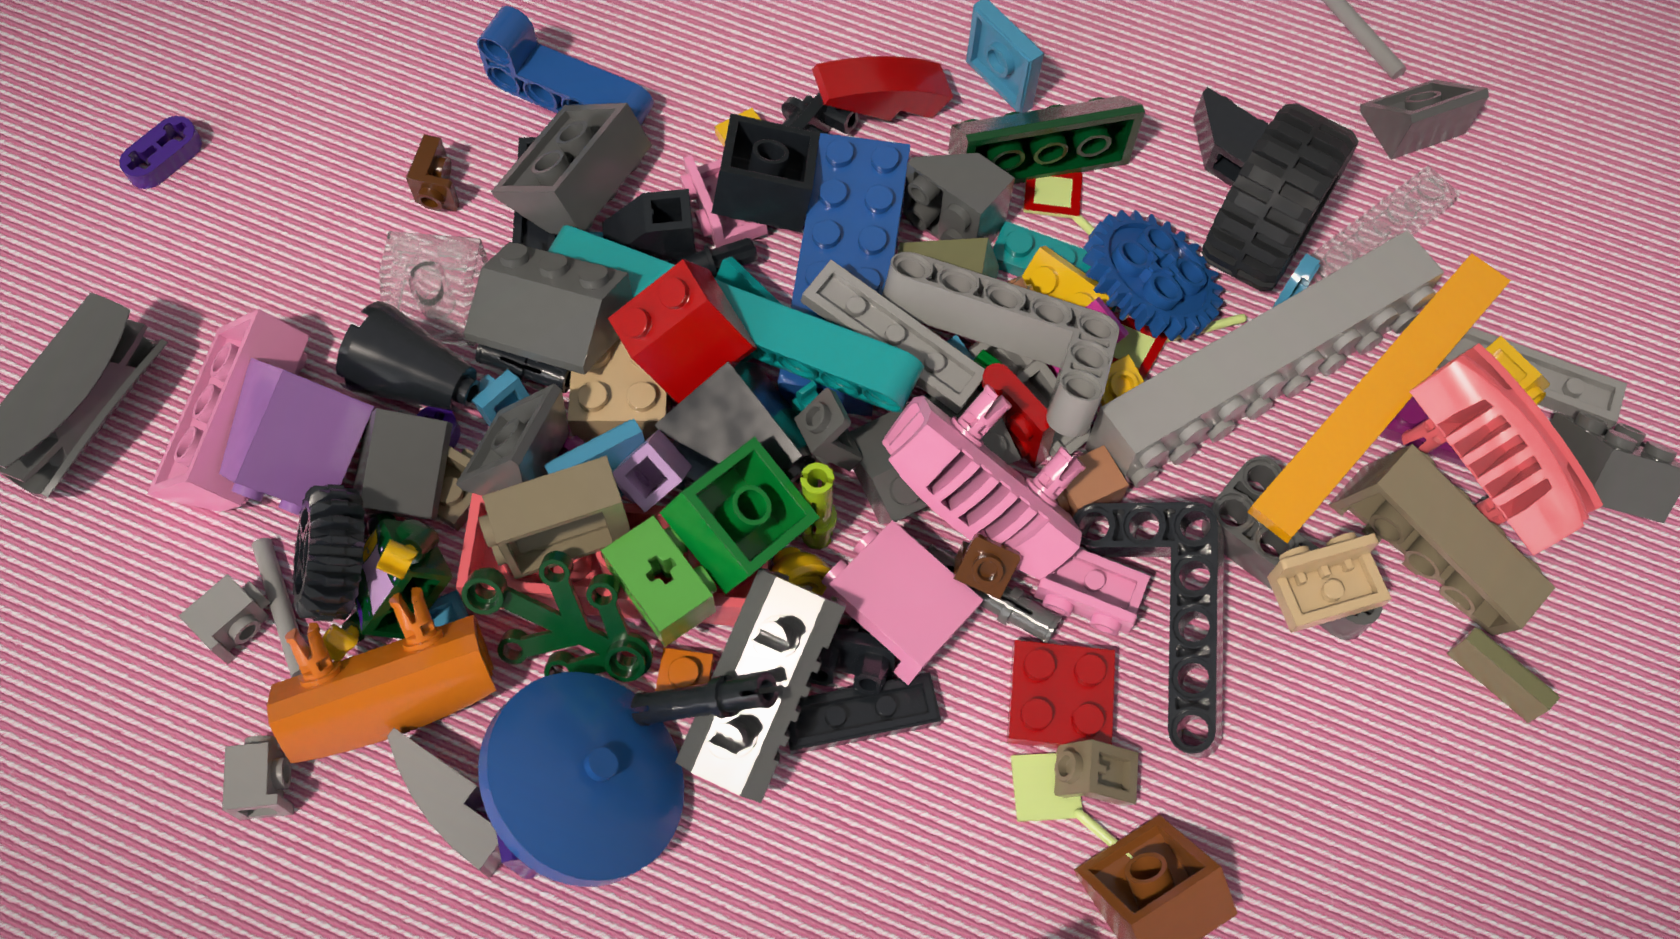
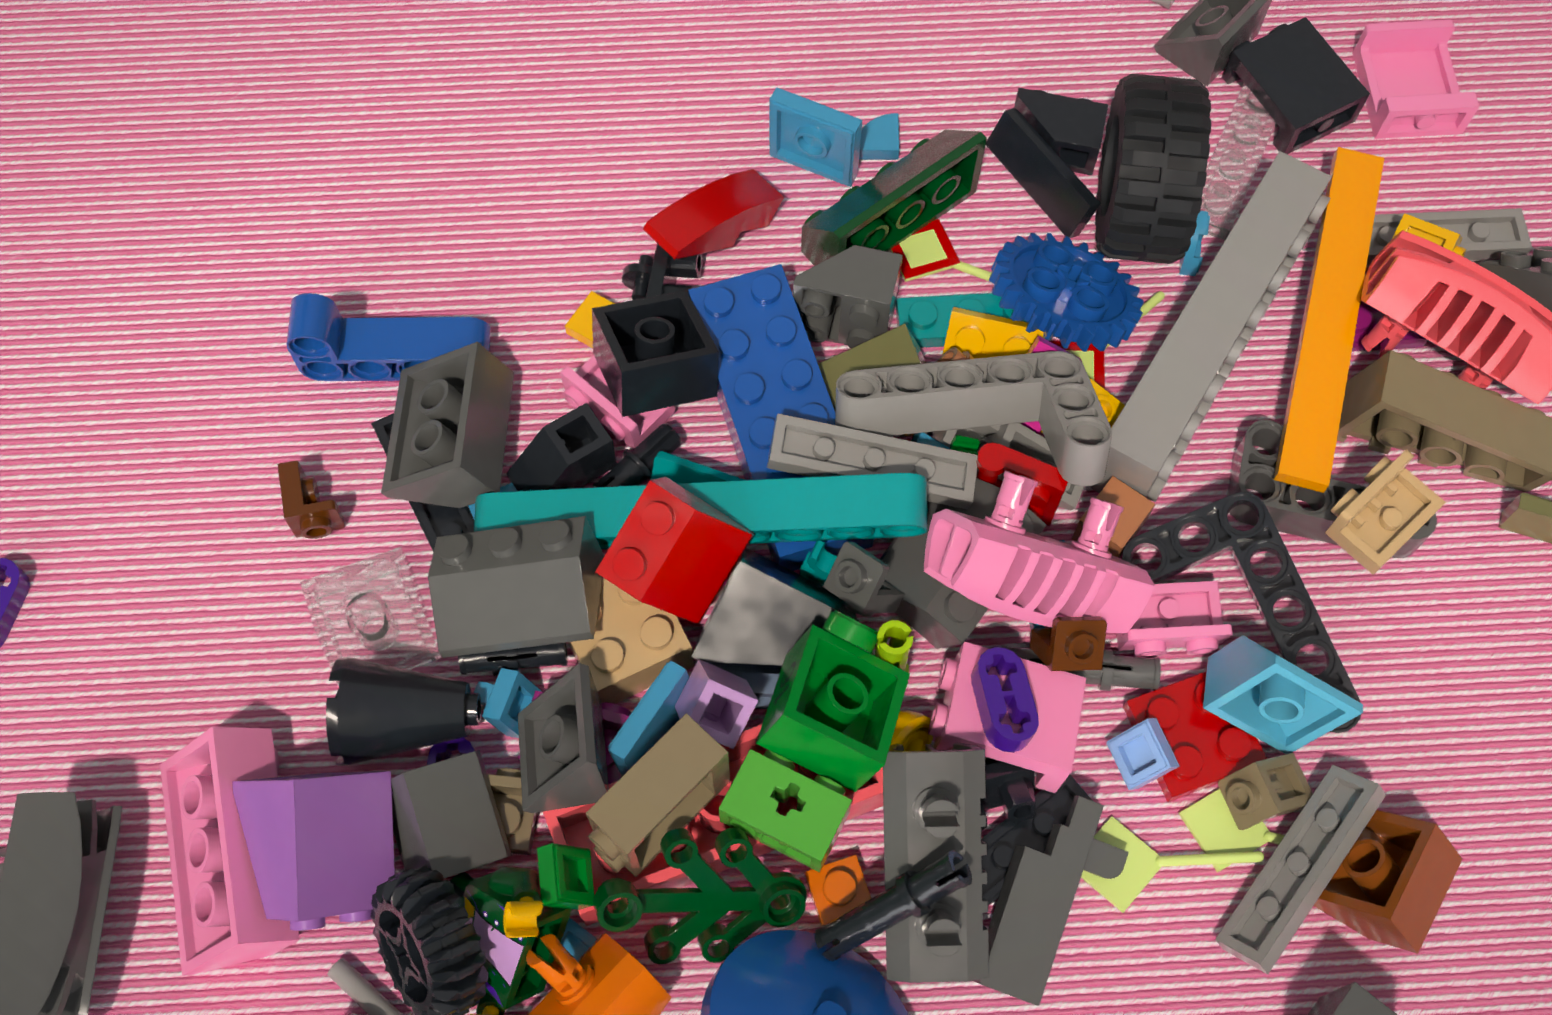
camera: 25 degrees left, 0 degrees up
(455, 548) = (565, 876): none -> green tile
(786, 458) = (851, 631): none -> green tile
(843, 764) = (1039, 899): none -> dark grey piece
(905, 583) = (1013, 697): none -> dark purple beam
(936, 773) = (1144, 863): none -> yellowish green piece
(1002, 689) = (1142, 754): none -> light blue tile
(1065, 84) = (880, 138): none -> dark azure tile
(1087, 849) = (1300, 868): none -> light grey plate
(1139, 692) = (1273, 696): none -> medium azure slope
(1191, 168) = (1042, 173): none -> black tile
(1473, 189) = (1298, 83): none -> black panel
(1587, 229) = (1412, 80): none -> bright pink panel

